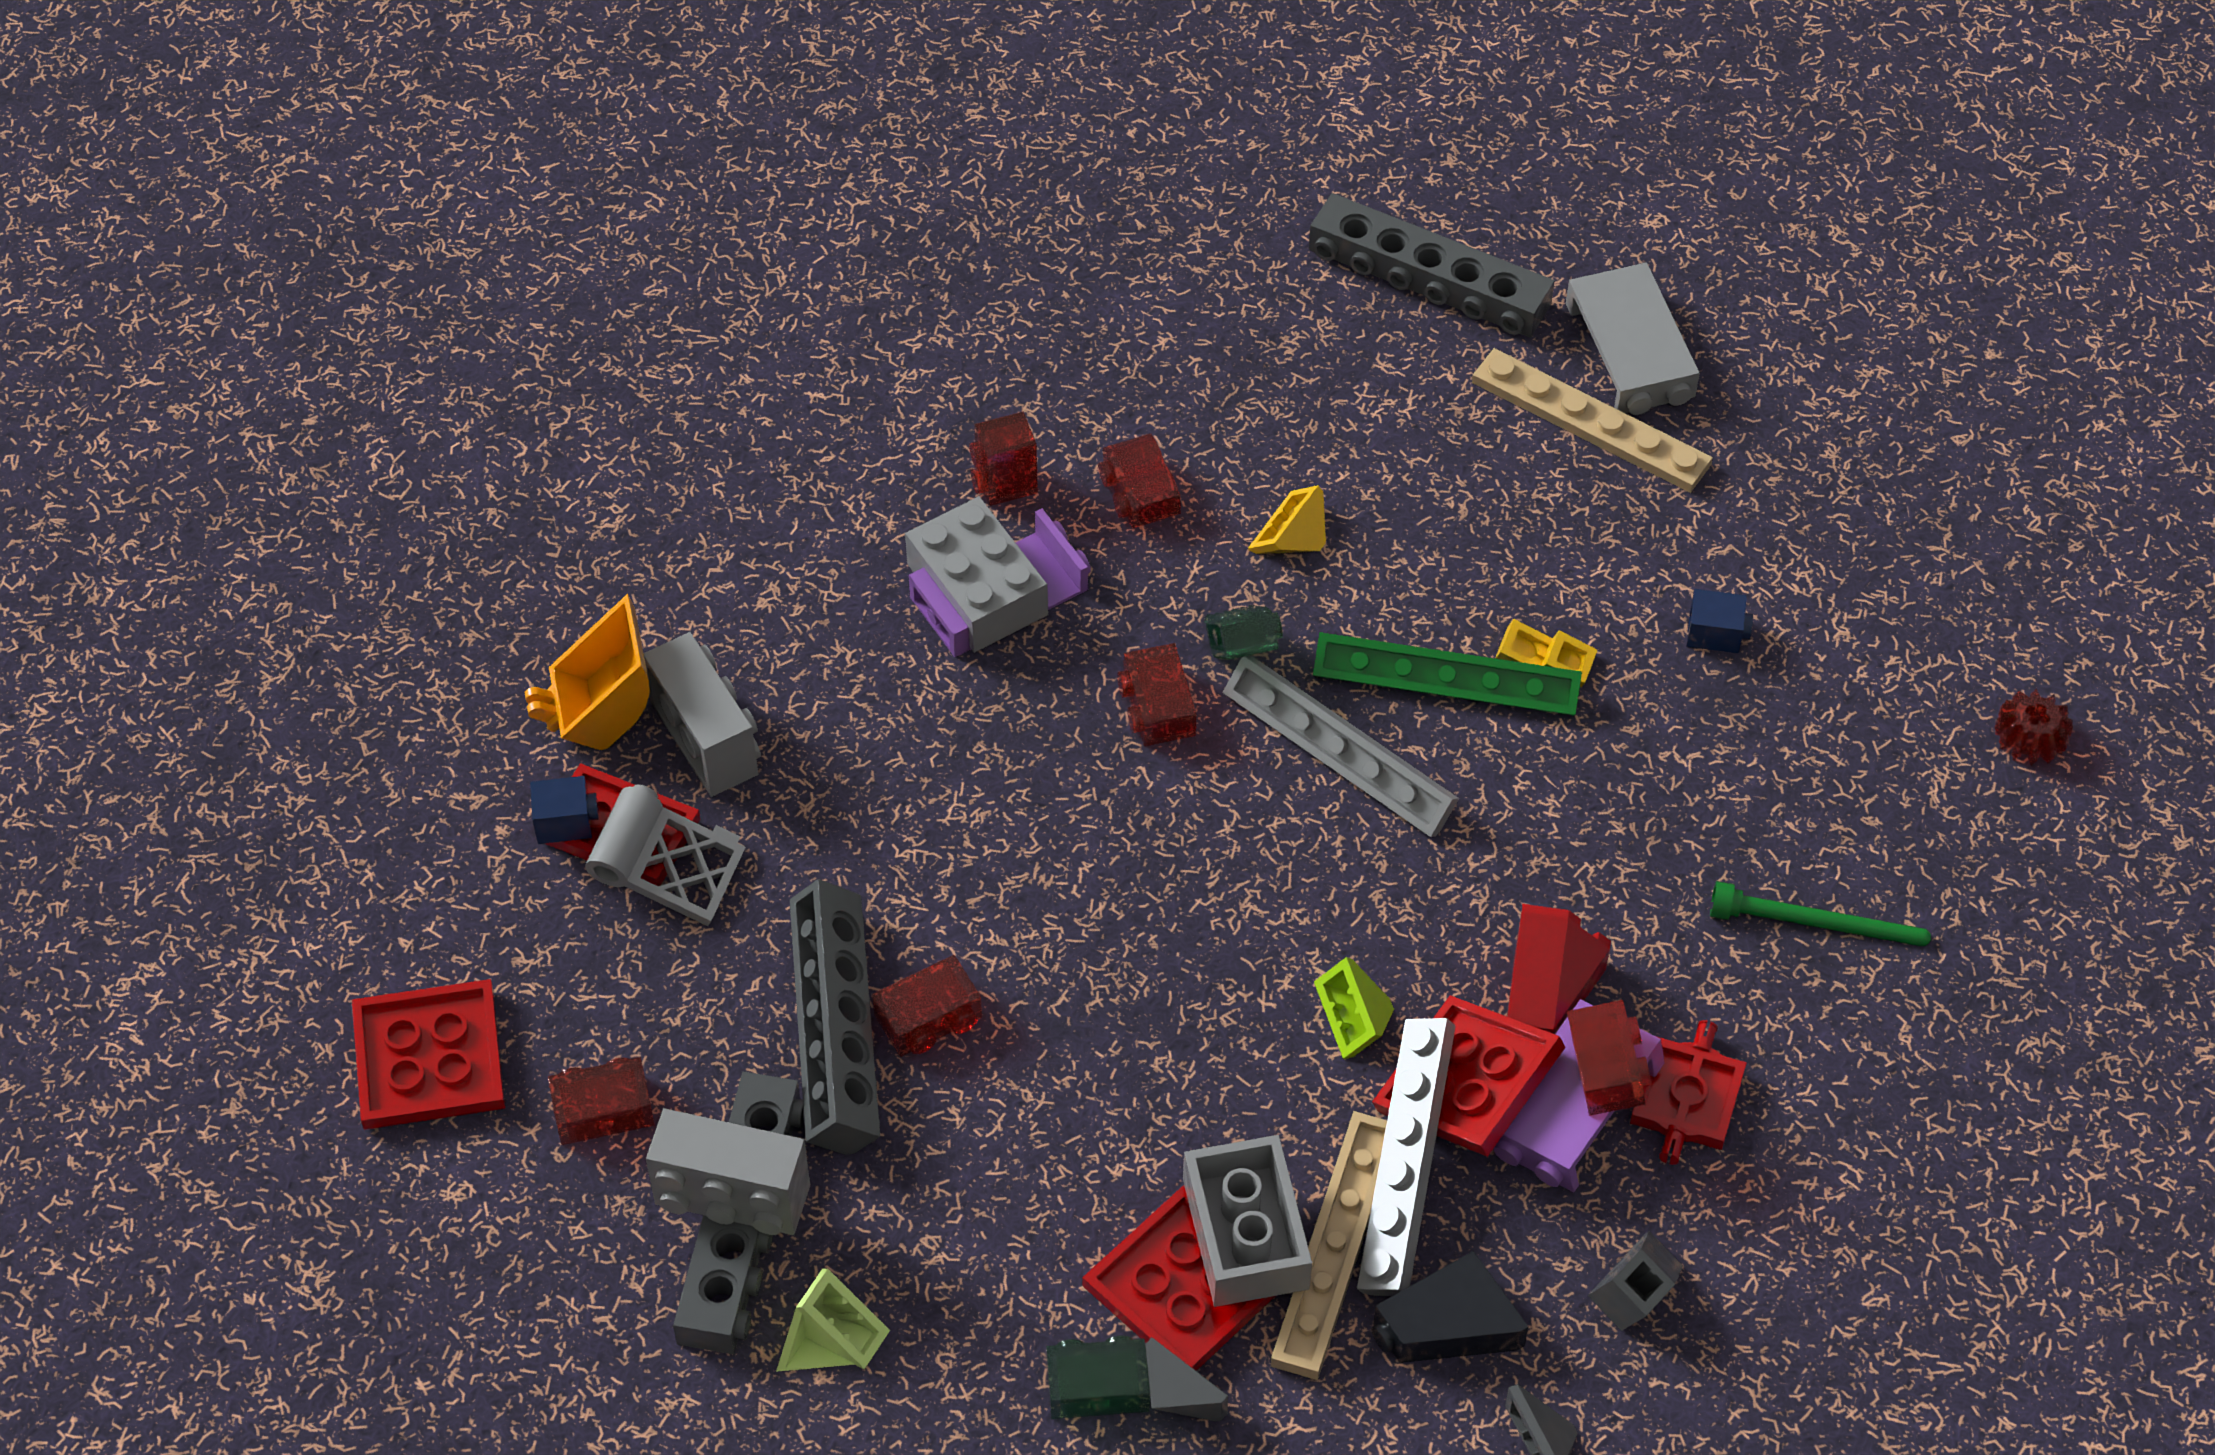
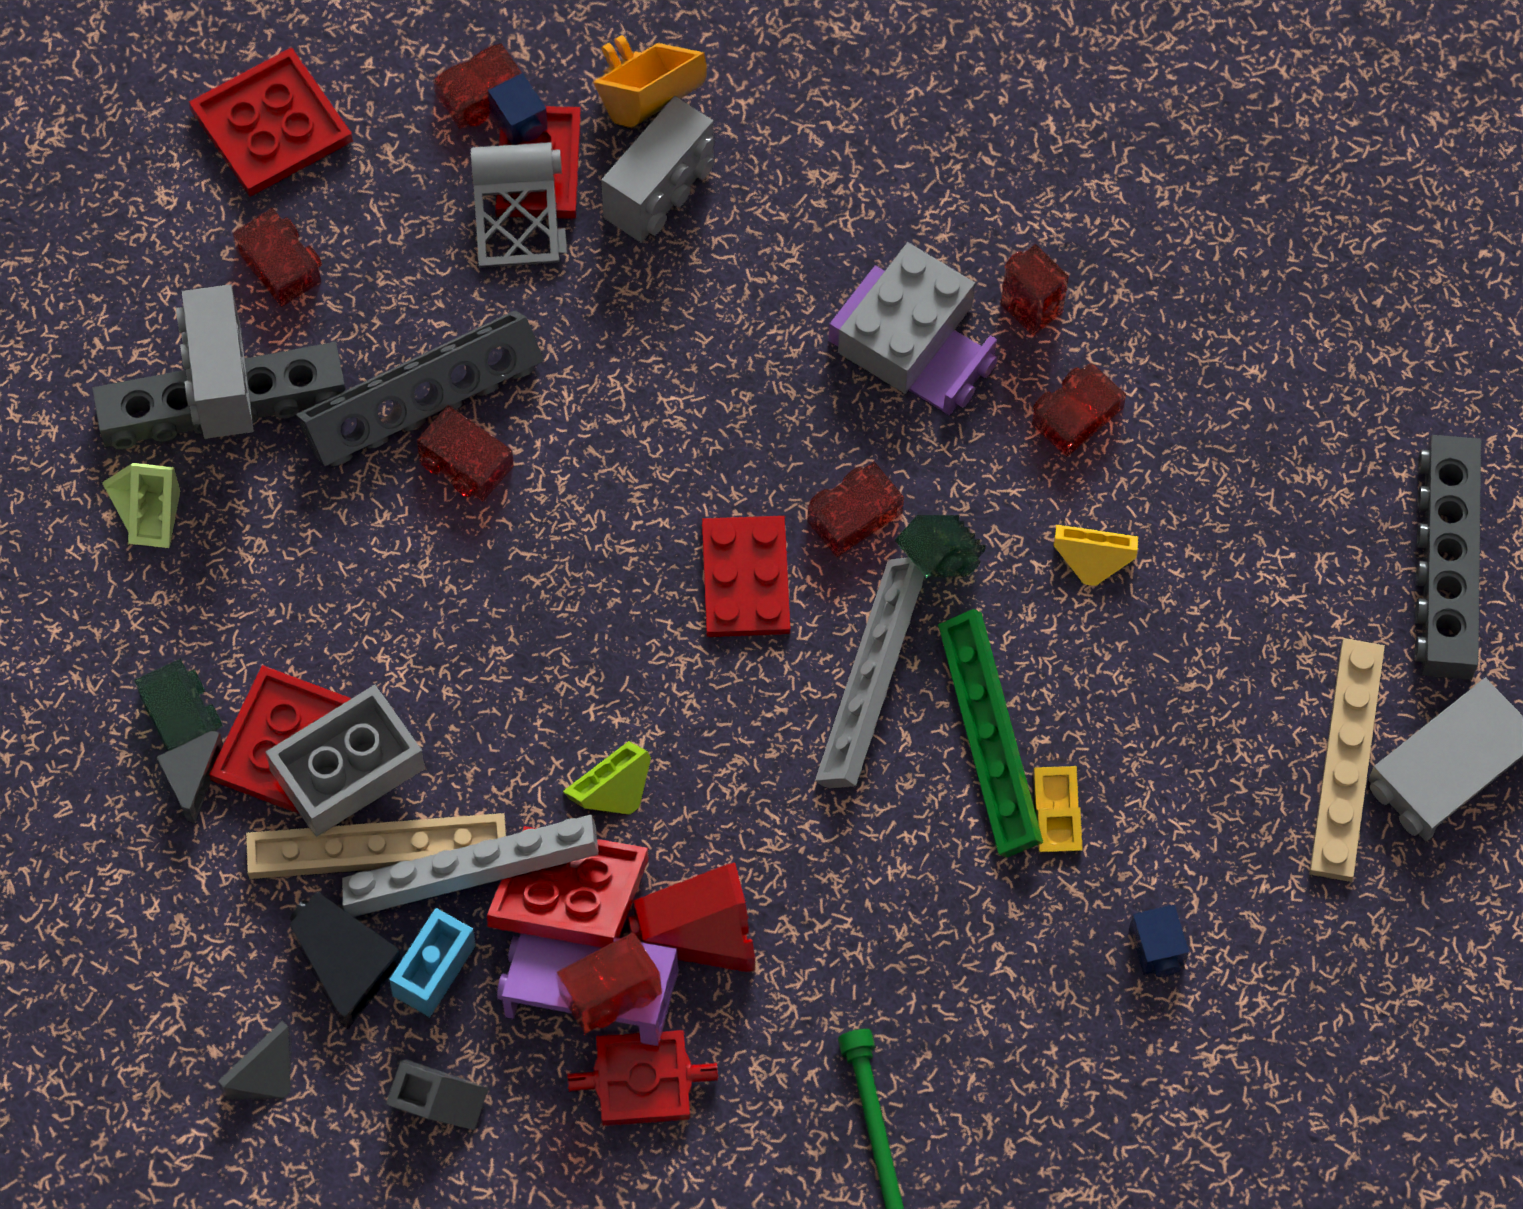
camera: 65 degrees right, 10 degrees up
(501, 844) = (466, 85): none -> clear red brick
(1181, 816) = (745, 576): none -> red plate
(1496, 1228) = (432, 962): none -> medium azure brick

